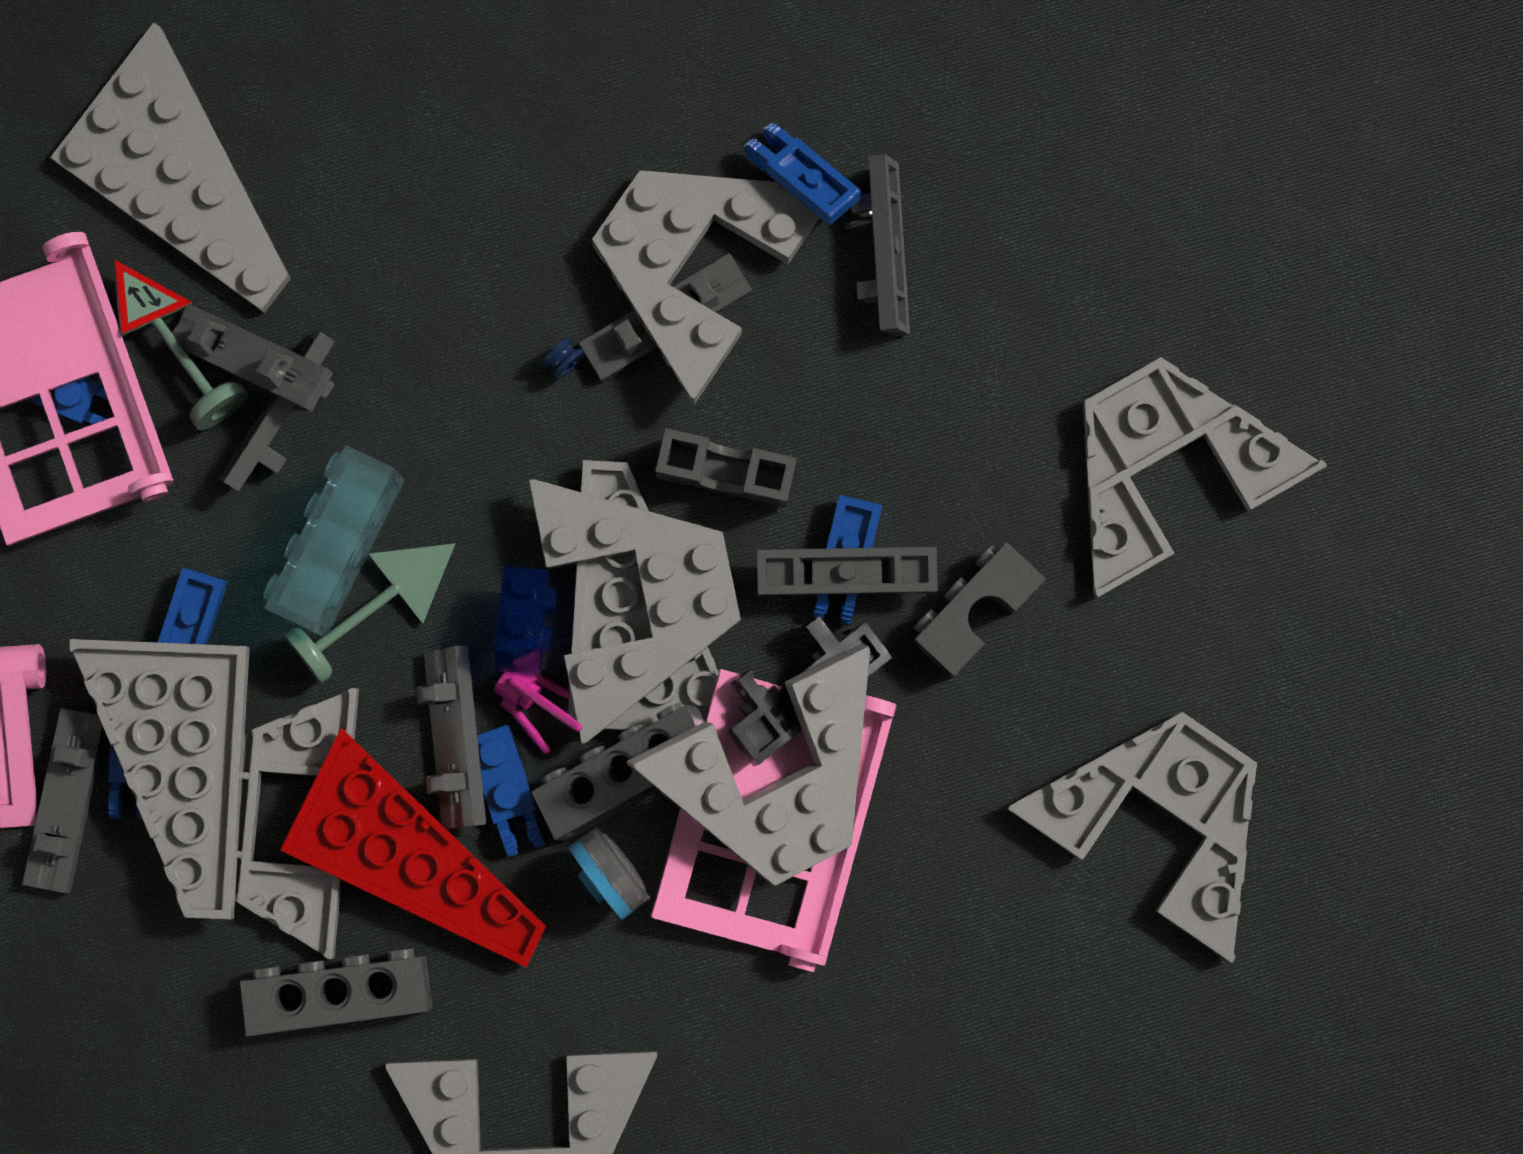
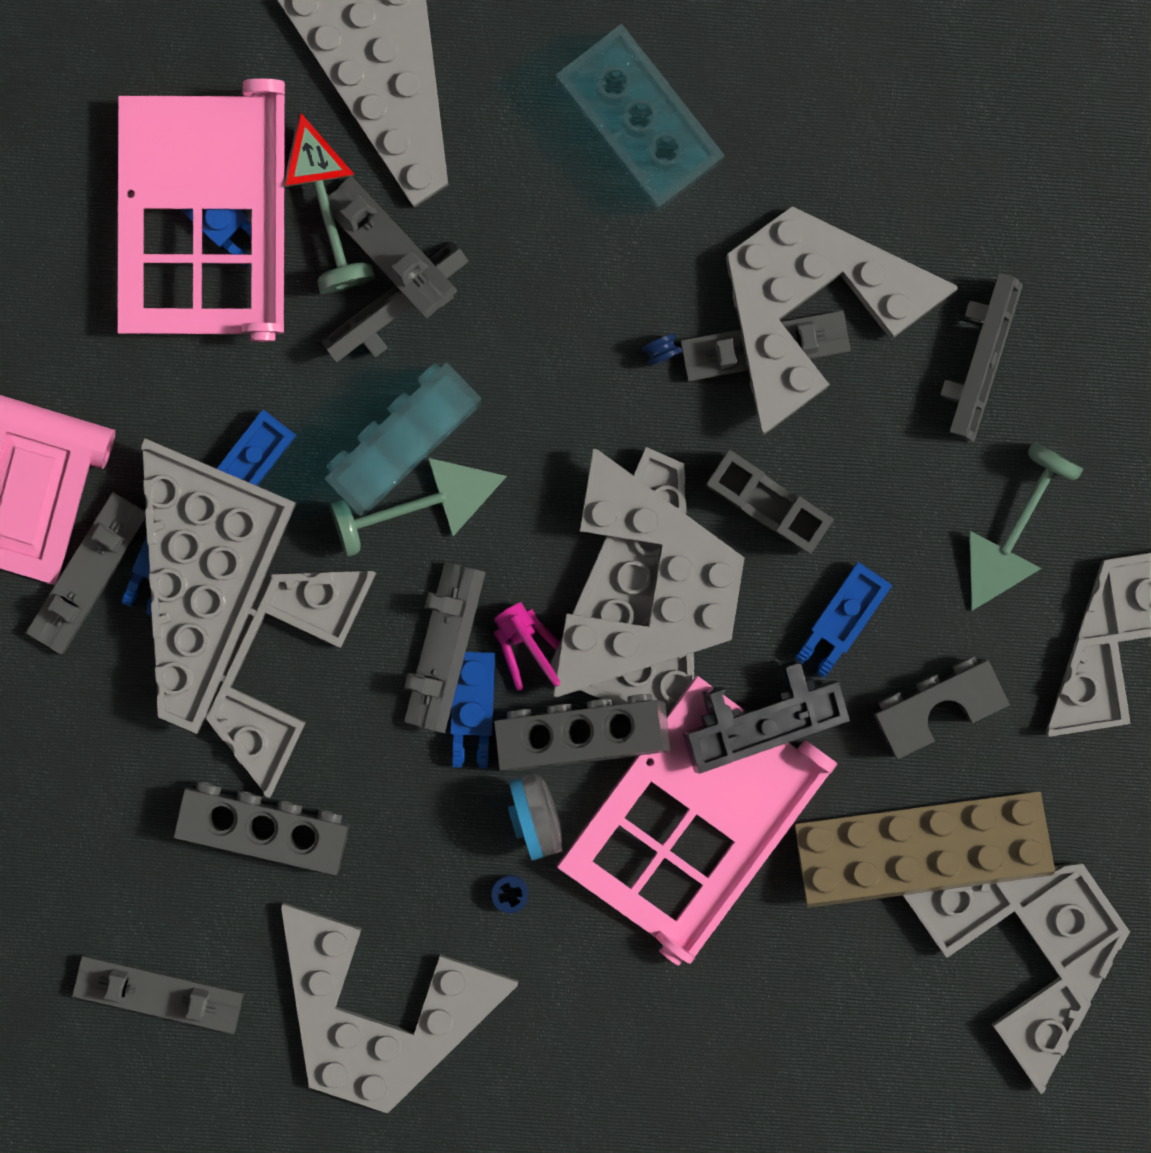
camera: 25 degrees right, 5 degrees up
(385, 842) = (354, 719): red wing -> none
(450, 111) = (643, 91): none -> clear light blue brick
(522, 620) = (539, 574): clear blue brick -> none
(615, 978) = (514, 881): none -> dark blue bush
(798, 817) = (720, 829): light grey wing -> none
(803, 174) = (935, 266): blue hinge -> none
(847, 571) = (840, 633): dark grey hinge -> none
(978, 449) = (996, 567): none -> sand green piece
(1017, 759) = (924, 849): none -> dark tan plate

